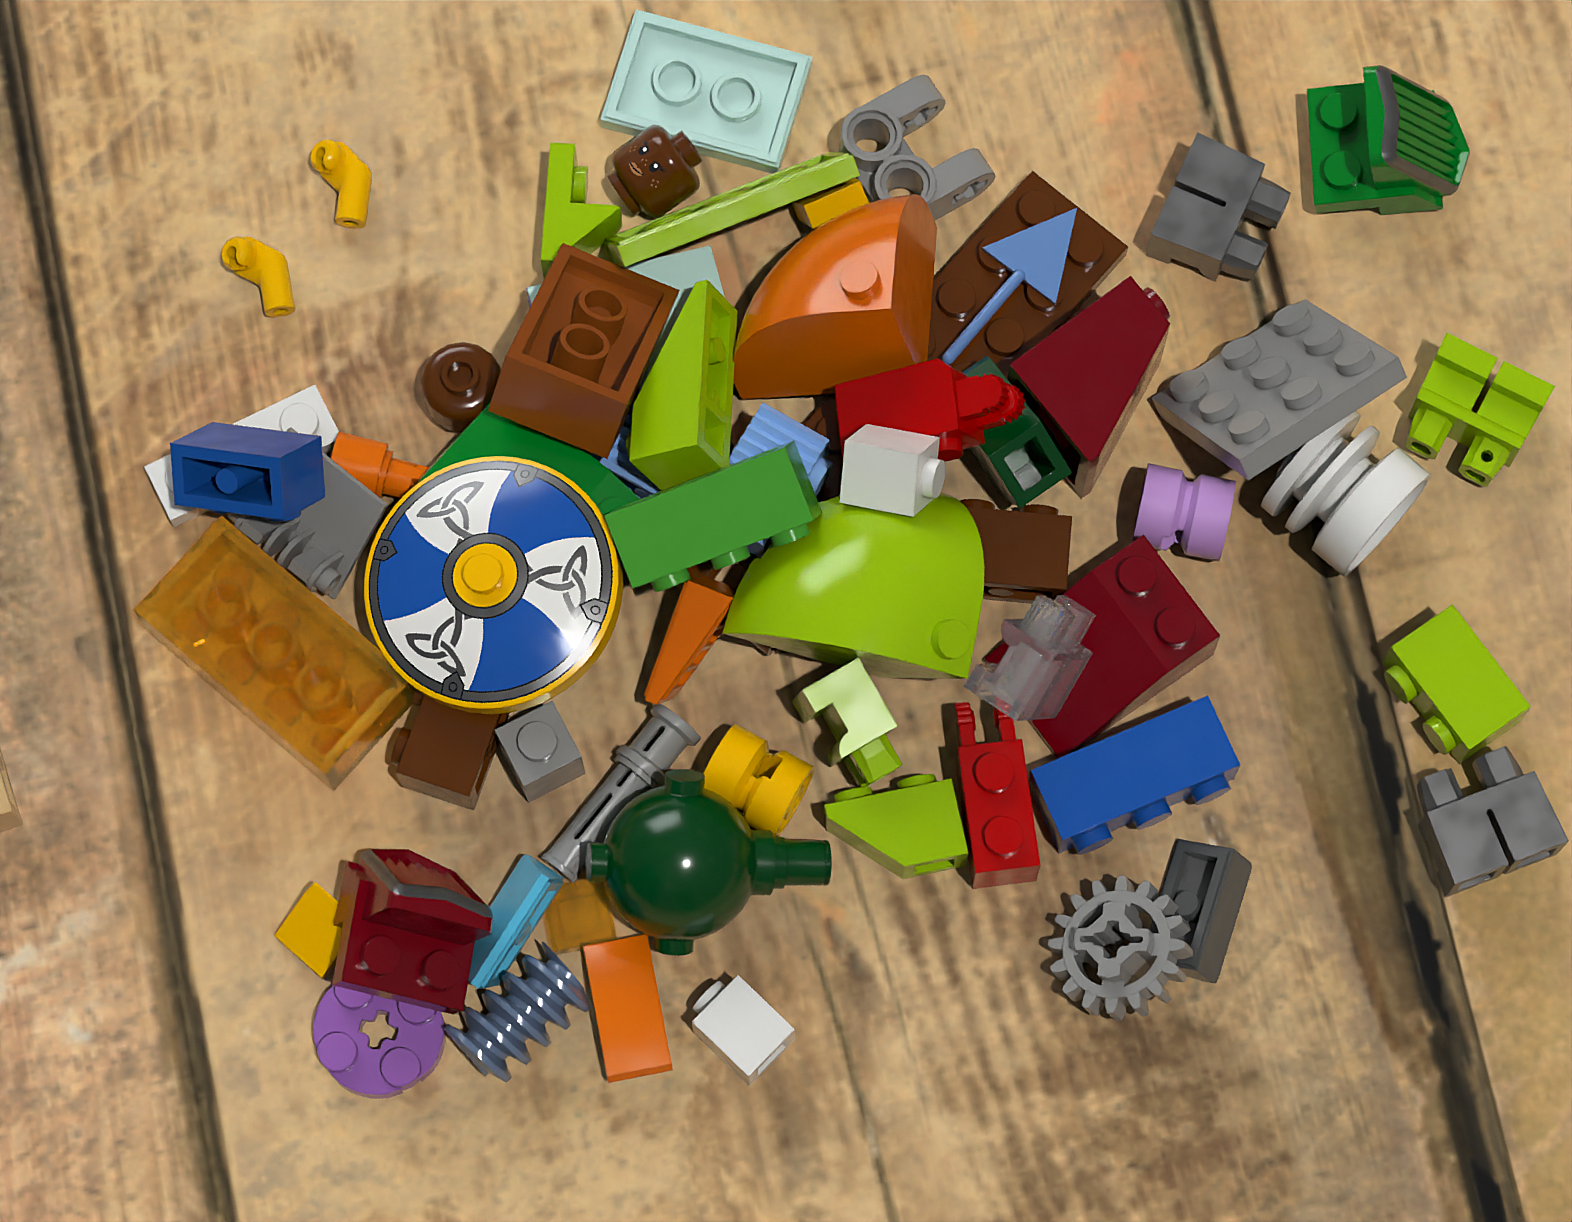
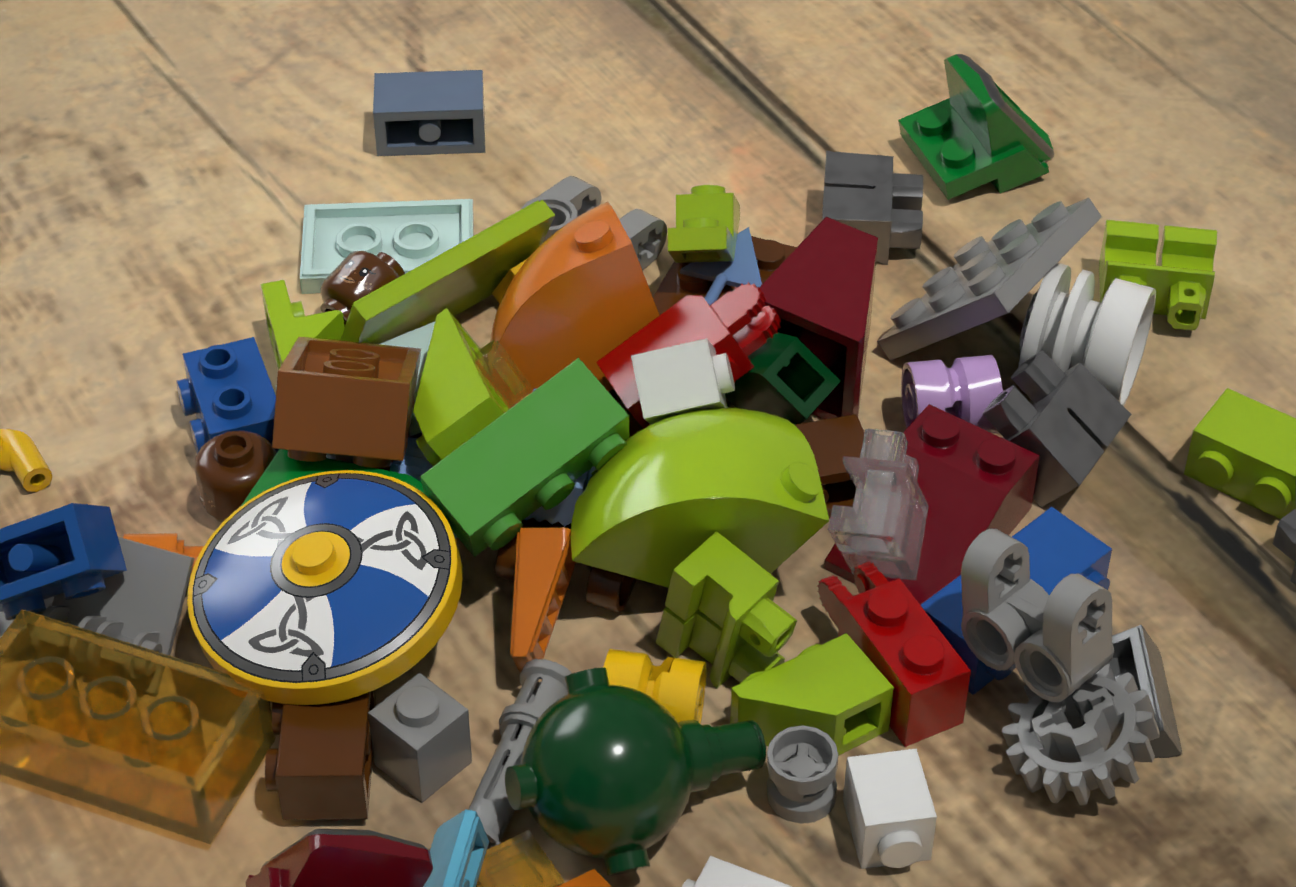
camera: 20 degrees left, 30 degrees down
(348, 176) = (73, 370): yellow arm -> none
(484, 281) = (227, 391): none -> blue brick
(733, 384) = (502, 373): none -> clear yellow tile
(861, 890) = (802, 774): none -> light grey wheel
(919, 966) = (889, 809): none -> white brick
(1023, 211) = (705, 226): none -> lime slope
(1102, 851) = (1013, 620): none -> light grey piece
(1264, 592) = (1064, 422): none -> flat silver hips

